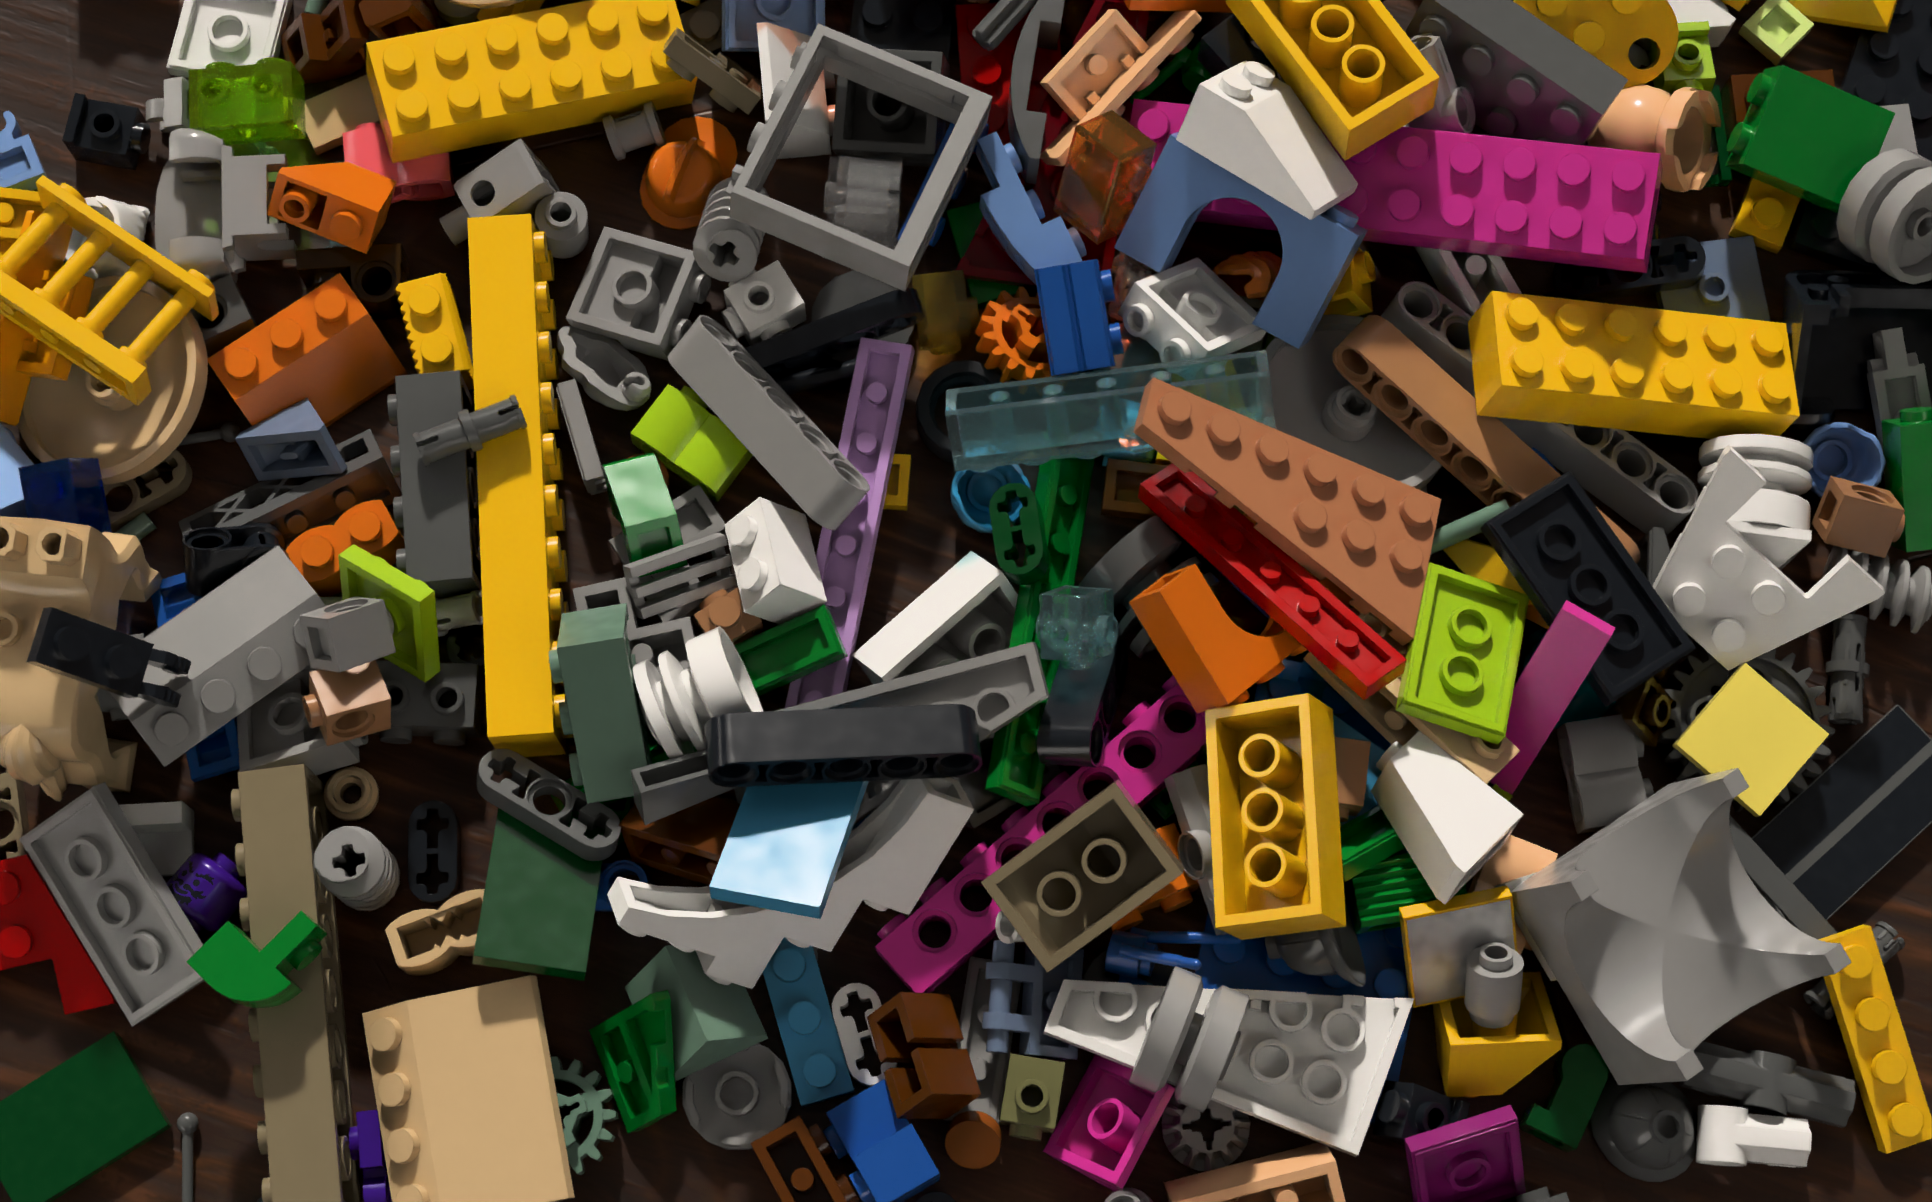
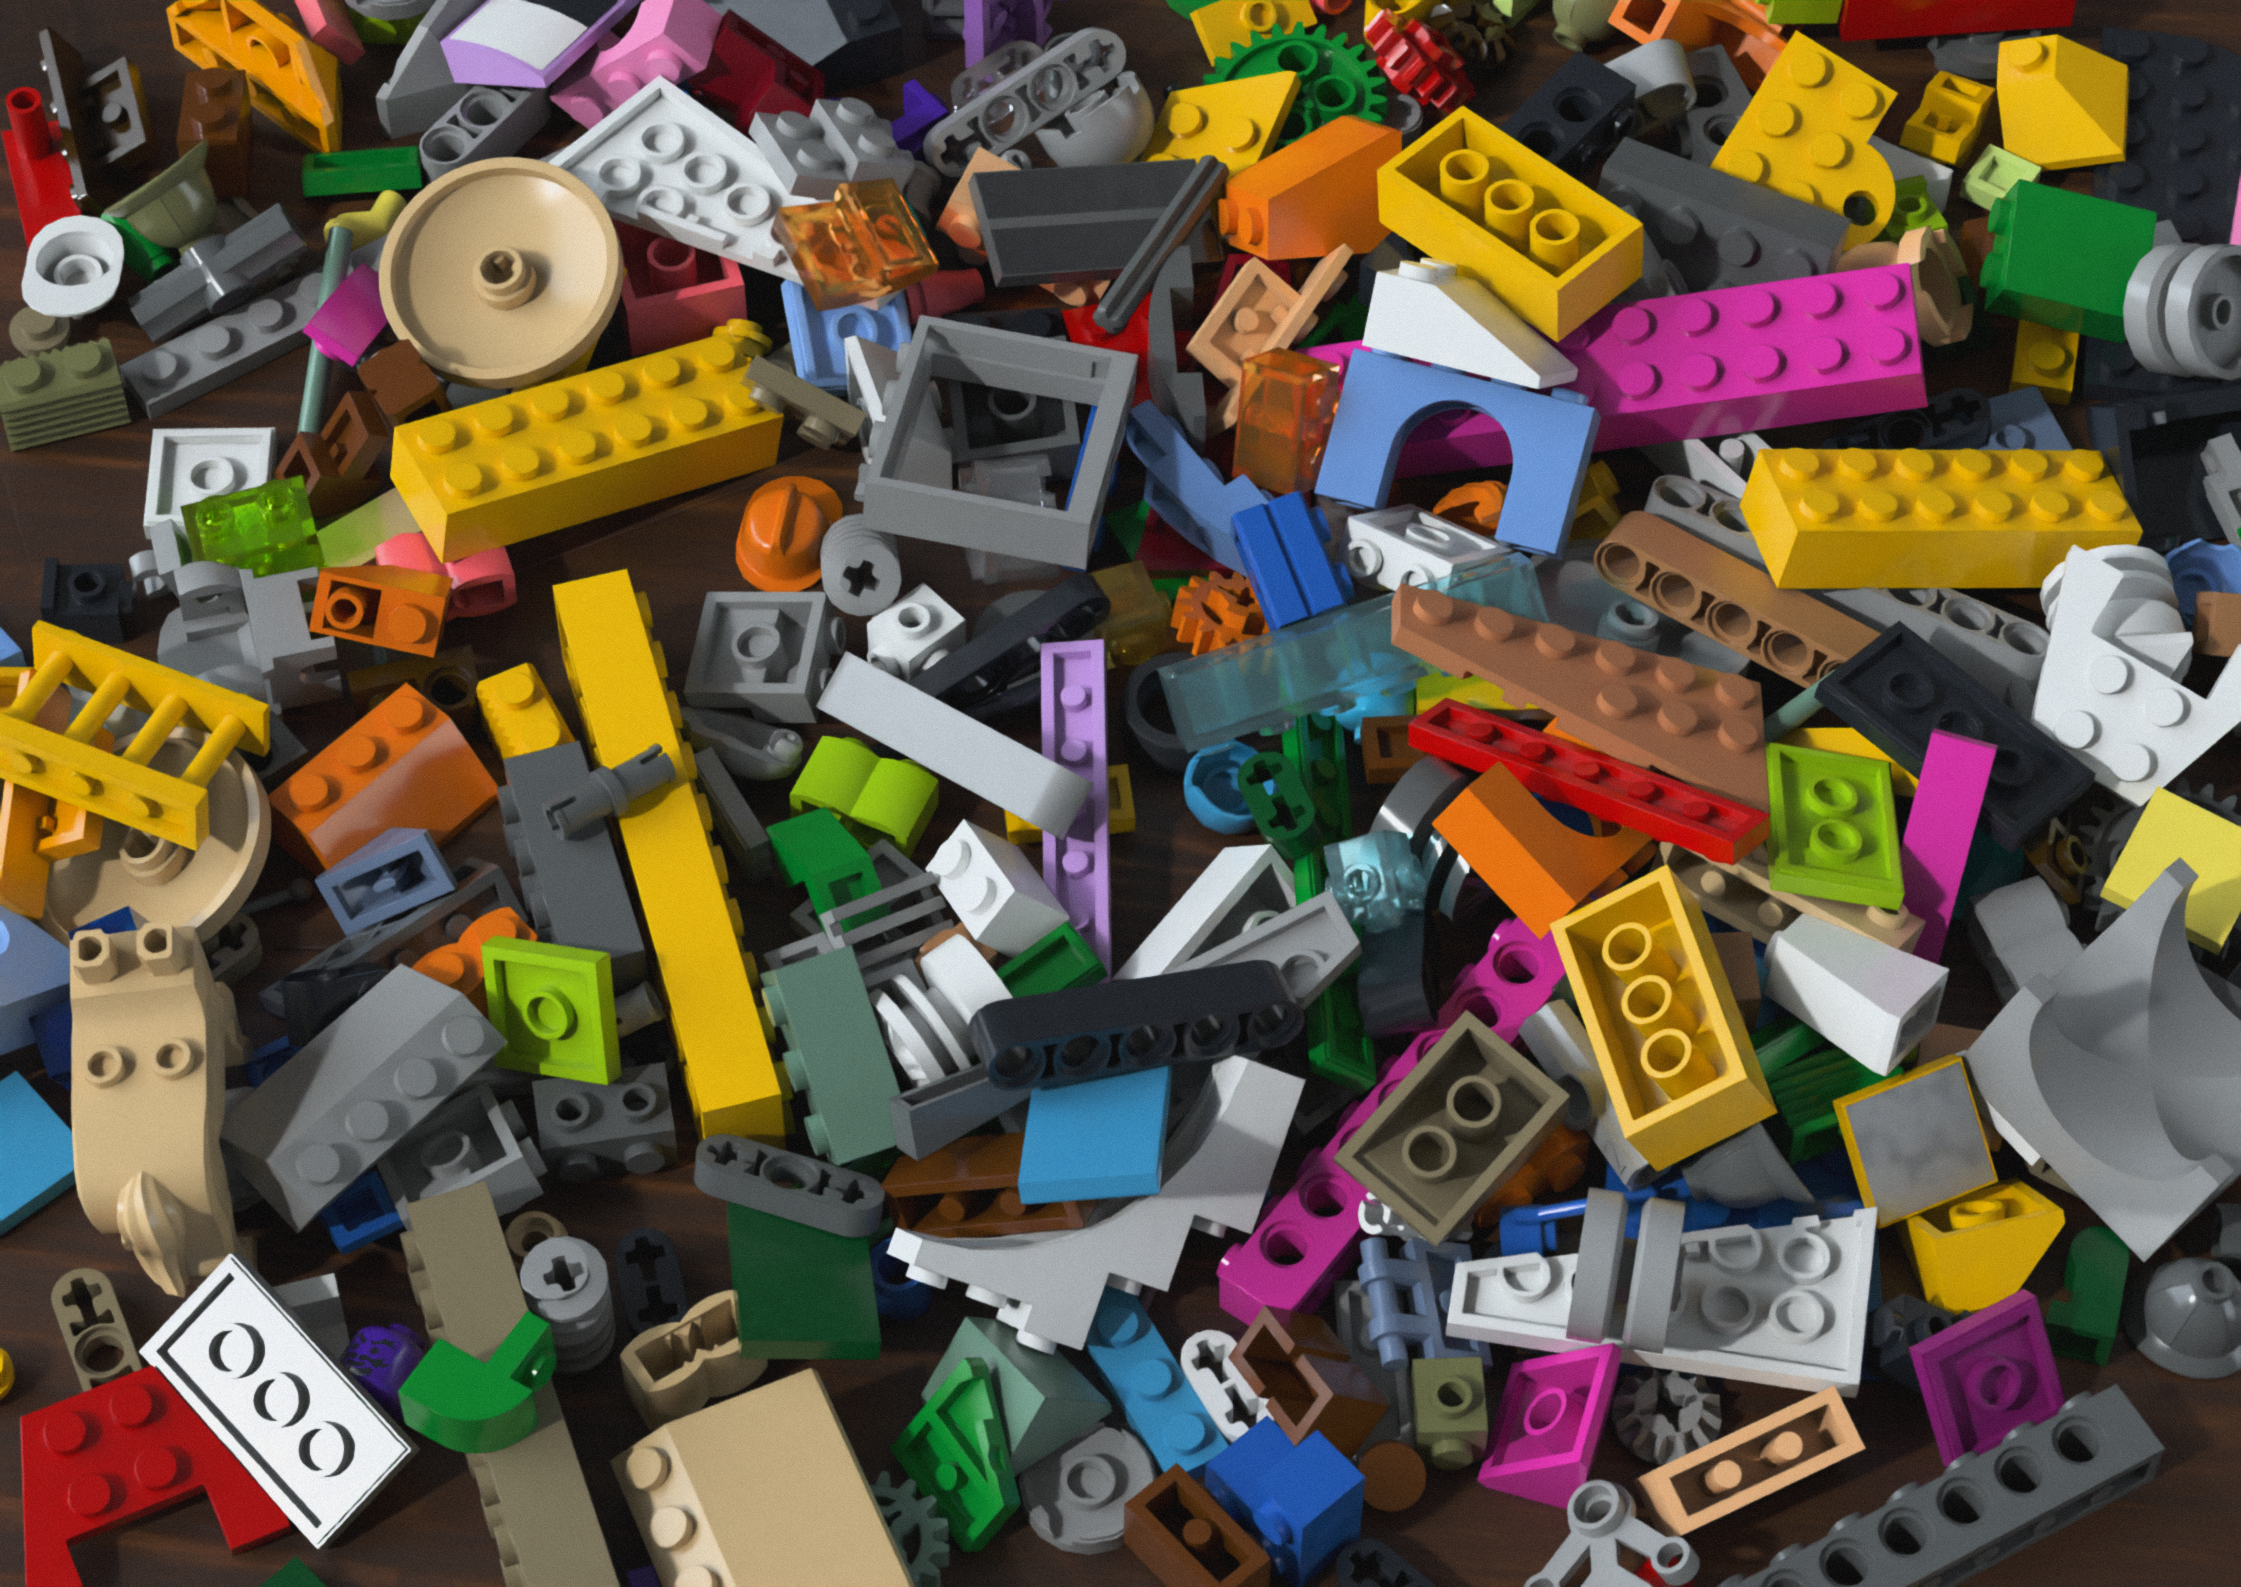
camera: 10 degrees left, 20 degrees down
(102, 657) = (236, 1076): black hinge -> none
(348, 633) = (511, 1024): light grey brick -> none
(348, 703) = (524, 1106): medium nougat brick -> none
(503, 185) = (584, 548): light grey torso -> none
(564, 222) = (667, 594): light grey brick -> none
(634, 131) = (717, 494): light grey bush -> none
(1493, 984) = (1966, 1168): light grey brick -> none

